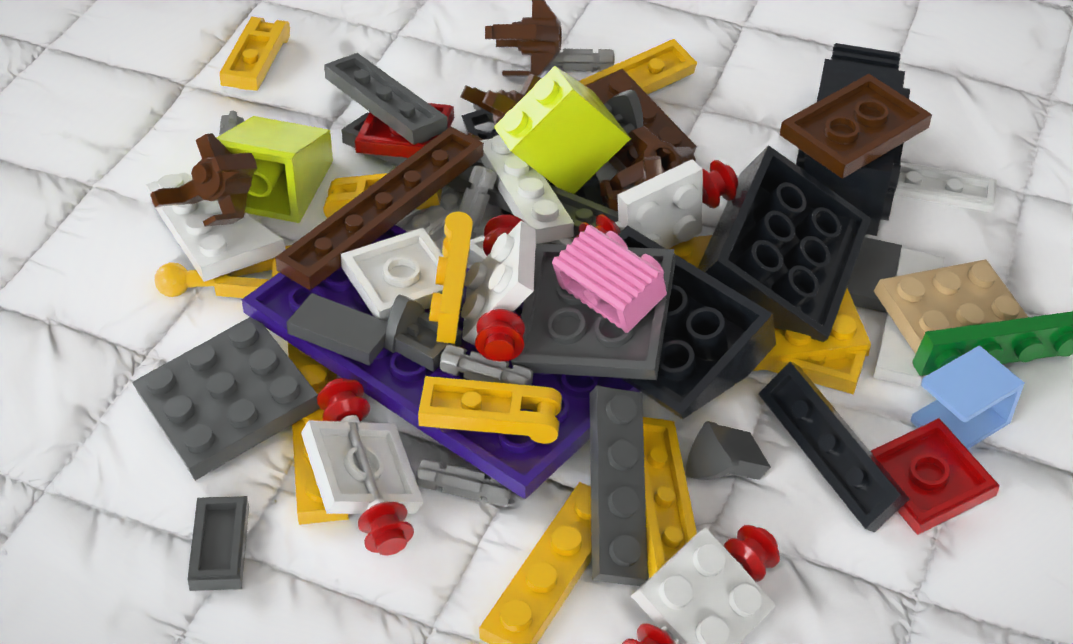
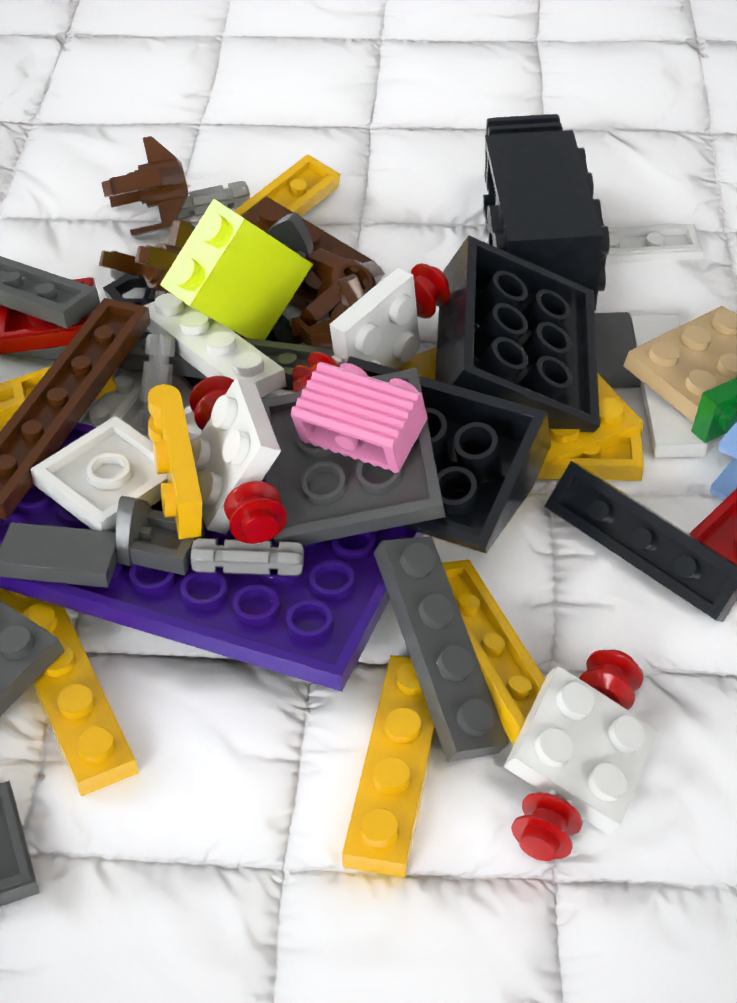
camera: 15 degrees left, 0 degrees up
(362, 467) = (138, 708): white plate -> none
(461, 482) = (257, 693): light grey axle -> none
(490, 407) = (270, 597): yellow plate -> none
(725, 451) = (534, 579): dark grey tile -> none
(855, 125) = (549, 194): reddish brown plate -> none

